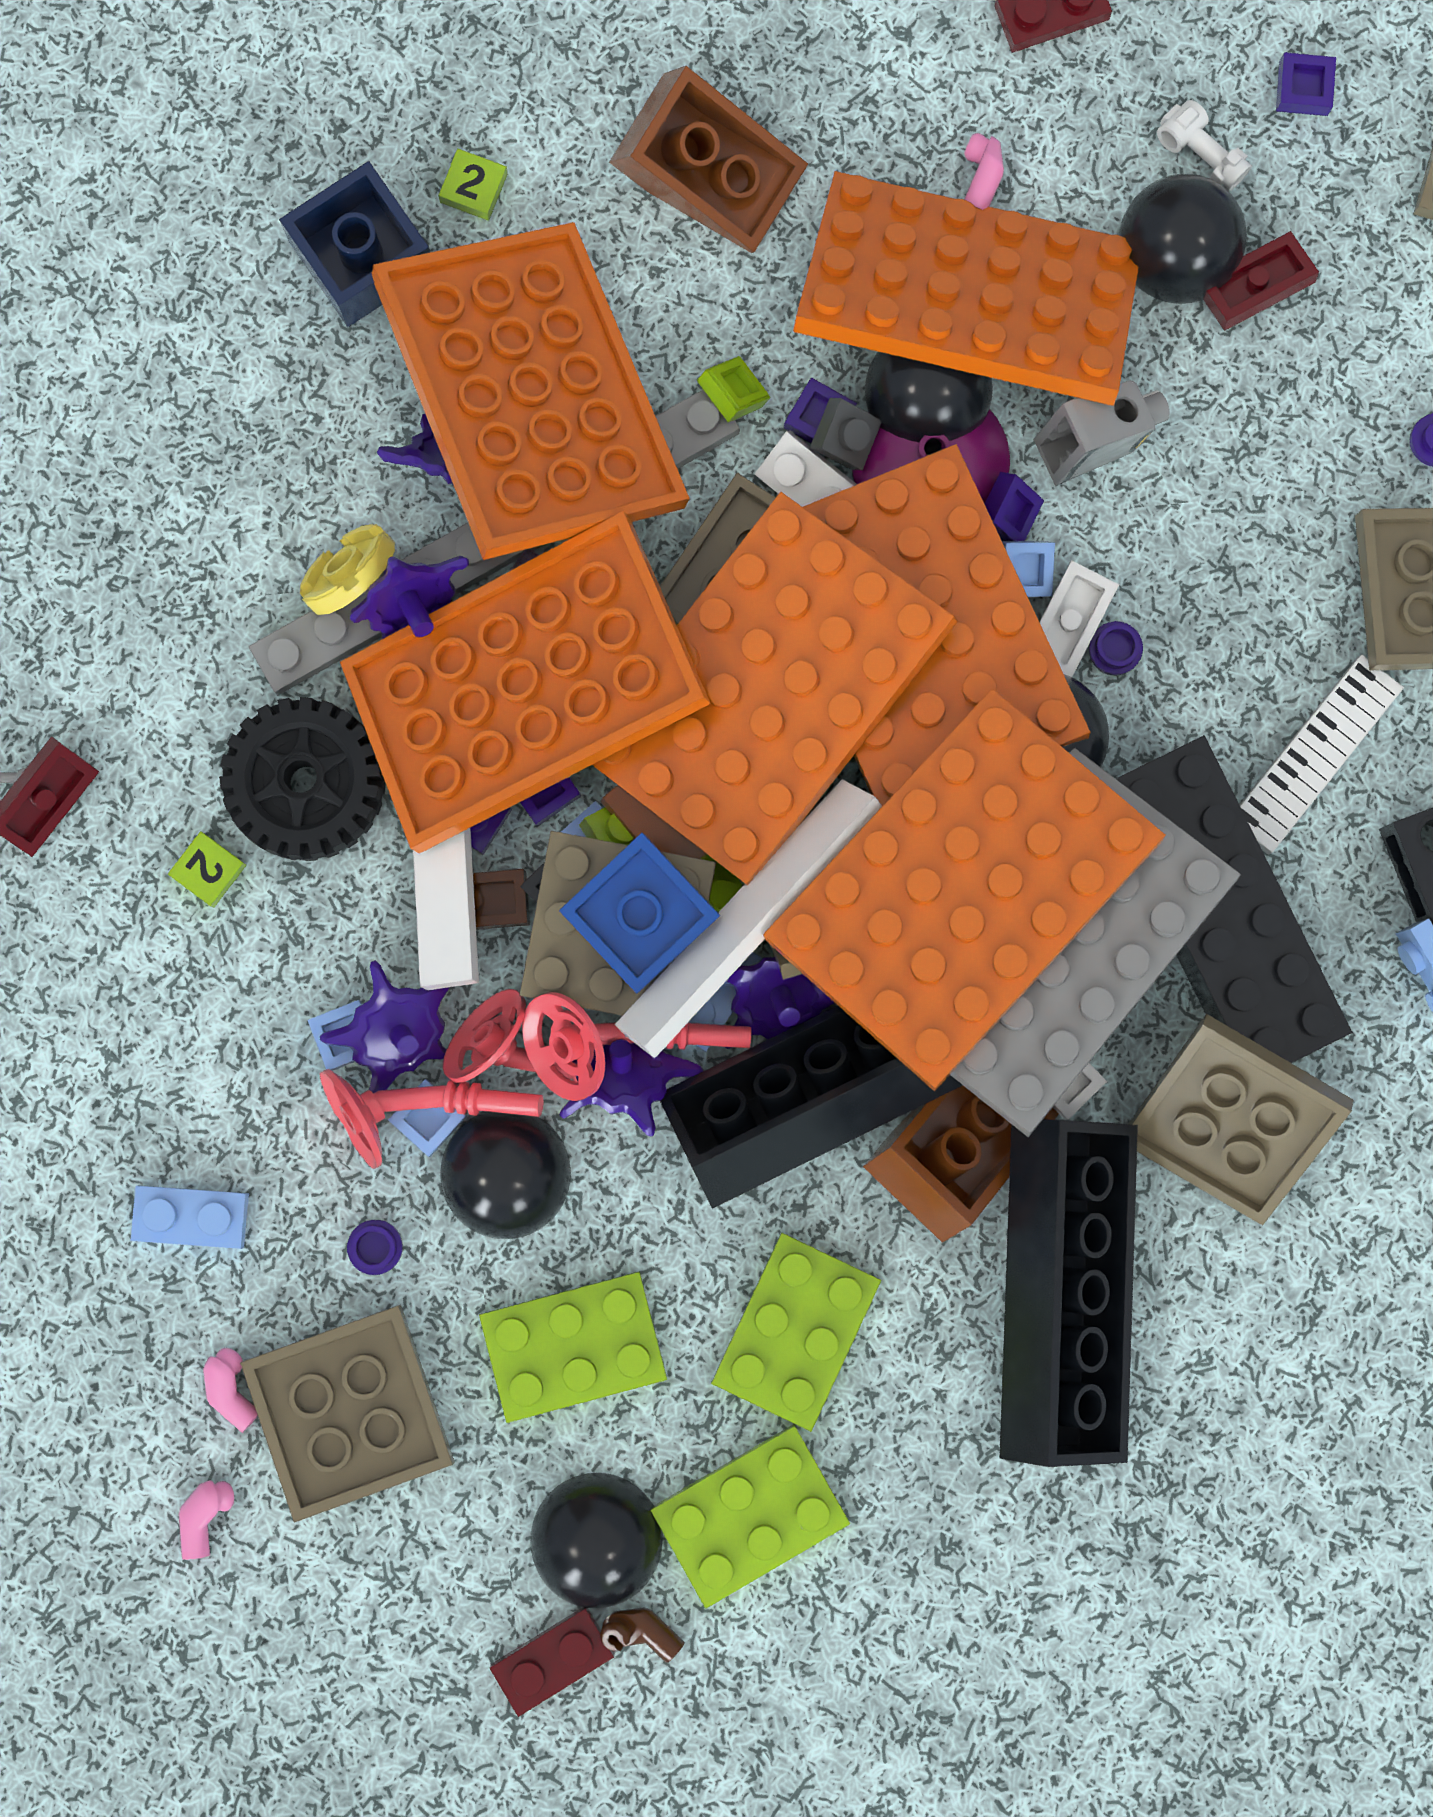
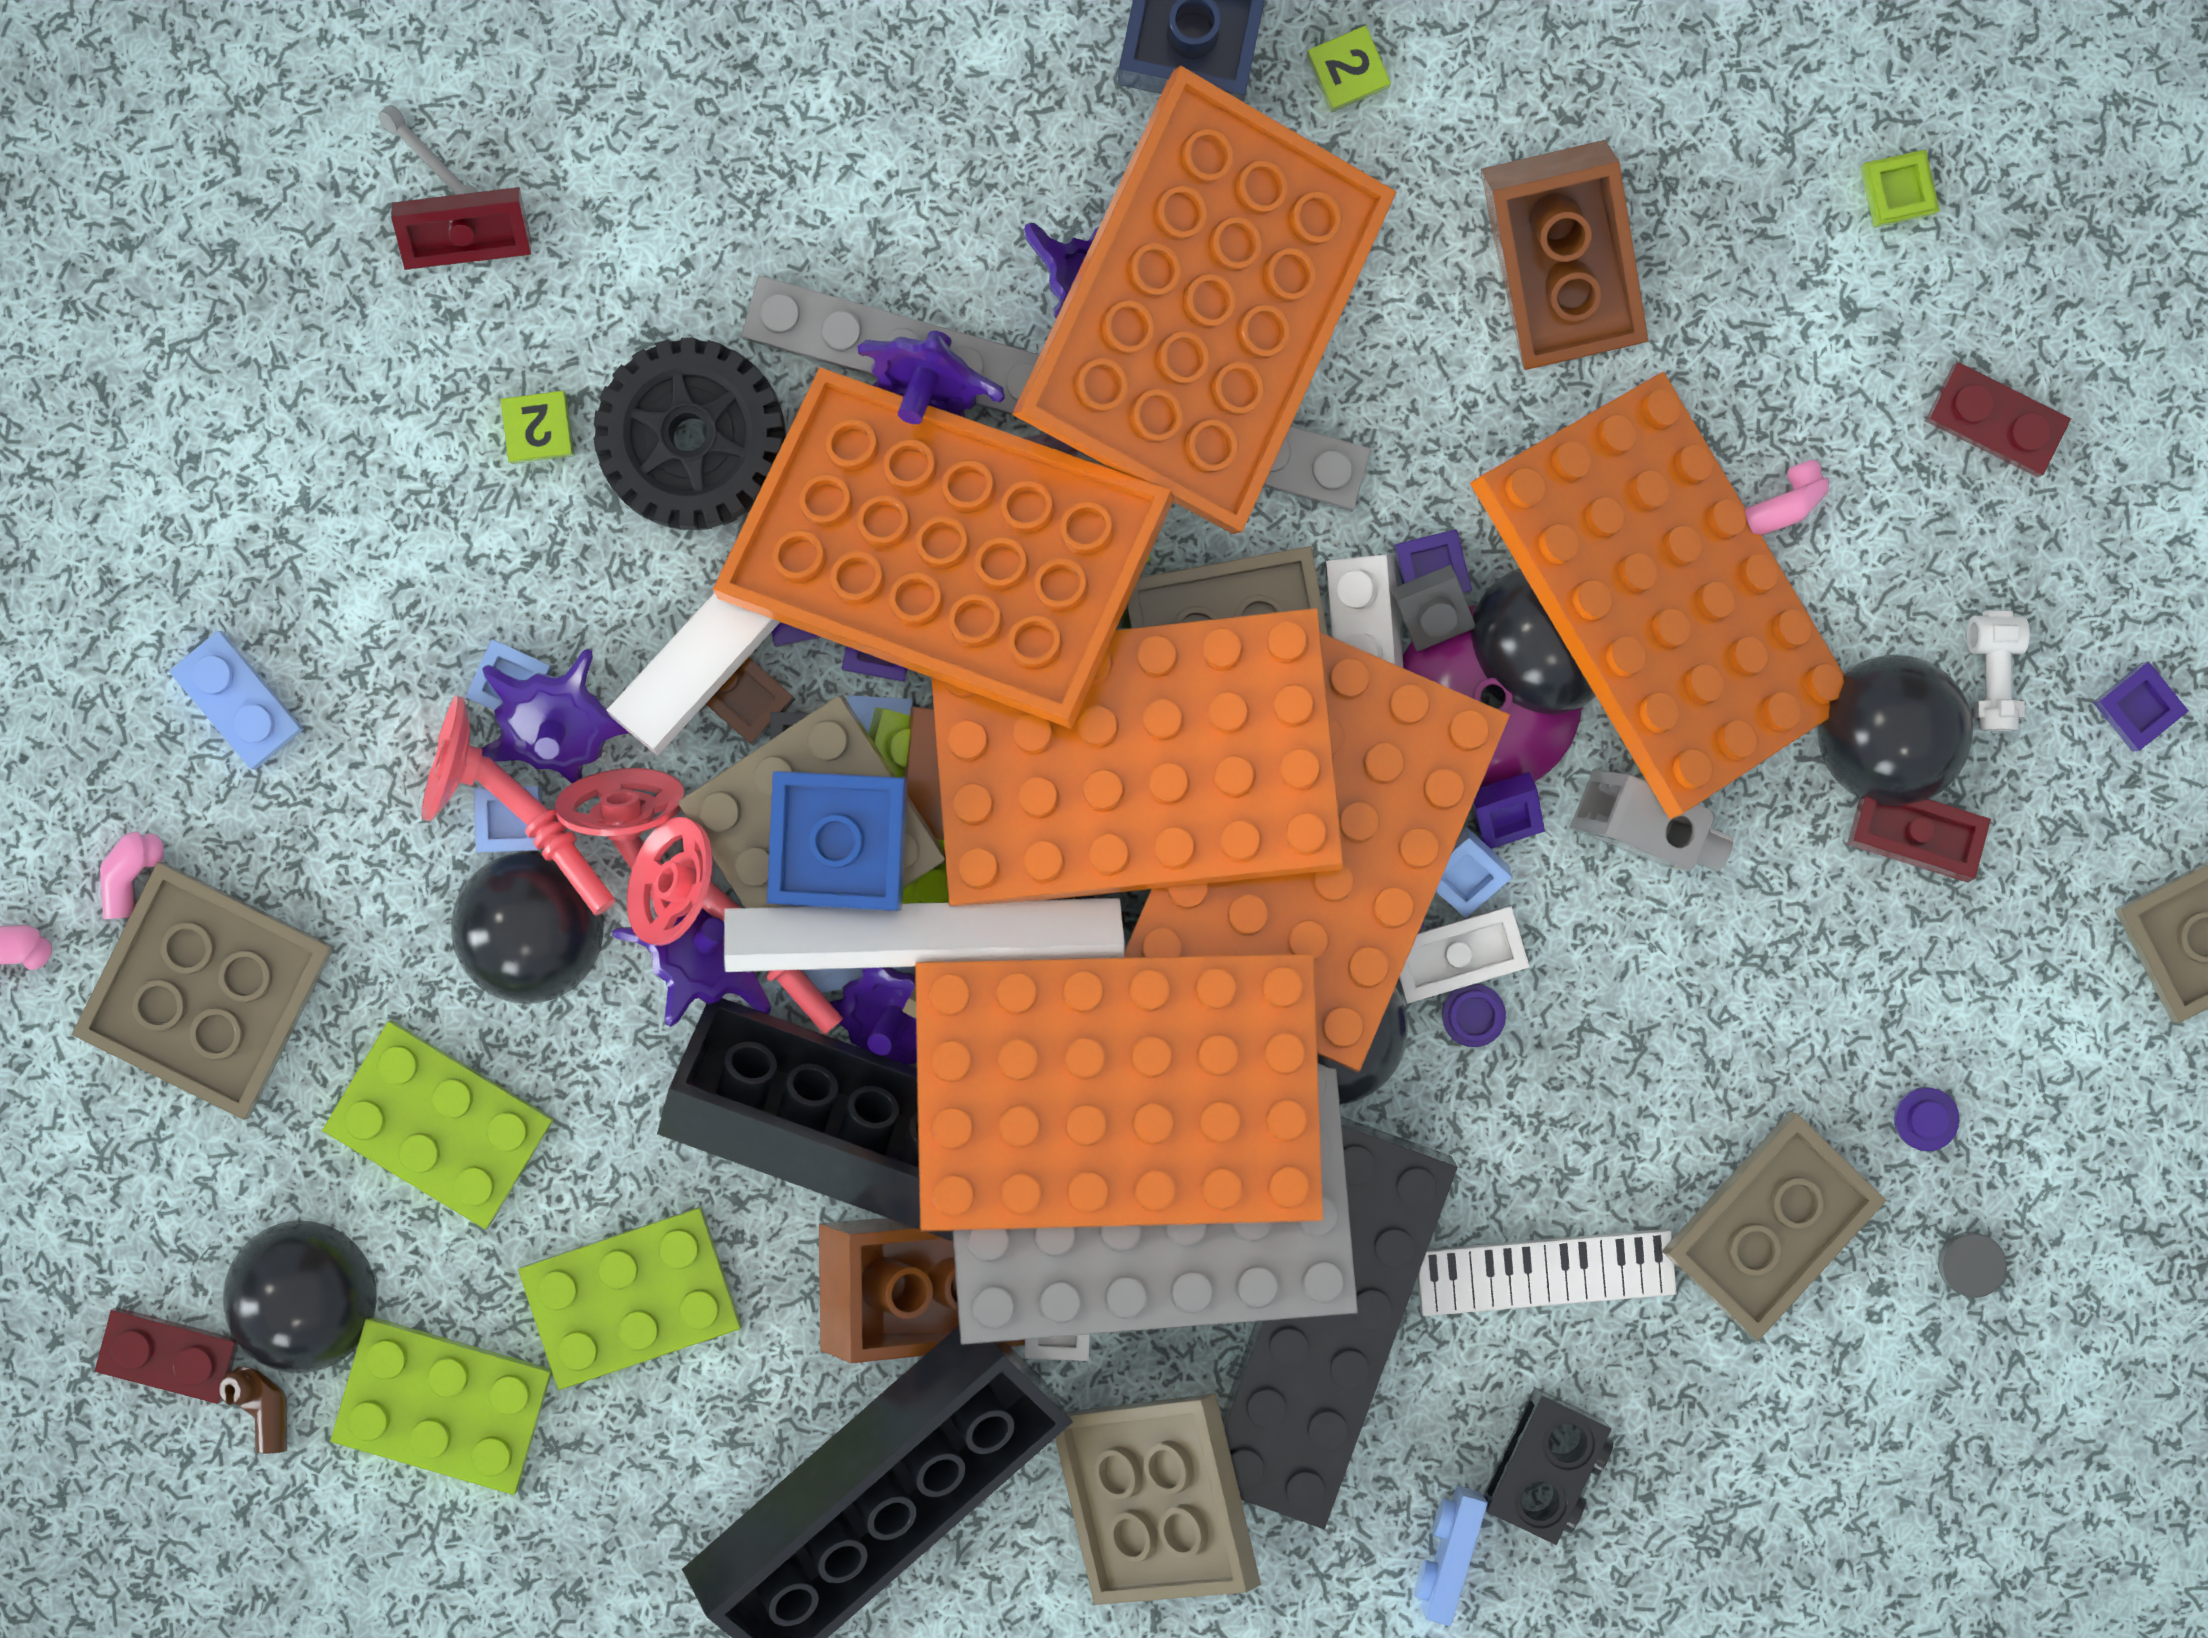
camera: 55 degrees right, 5 degrees up
(343, 577) = (901, 300): light yellow tile -> none
(375, 1247) = (360, 879): dark purple plate -> none
(733, 388) = (1383, 471): lime tile -> none

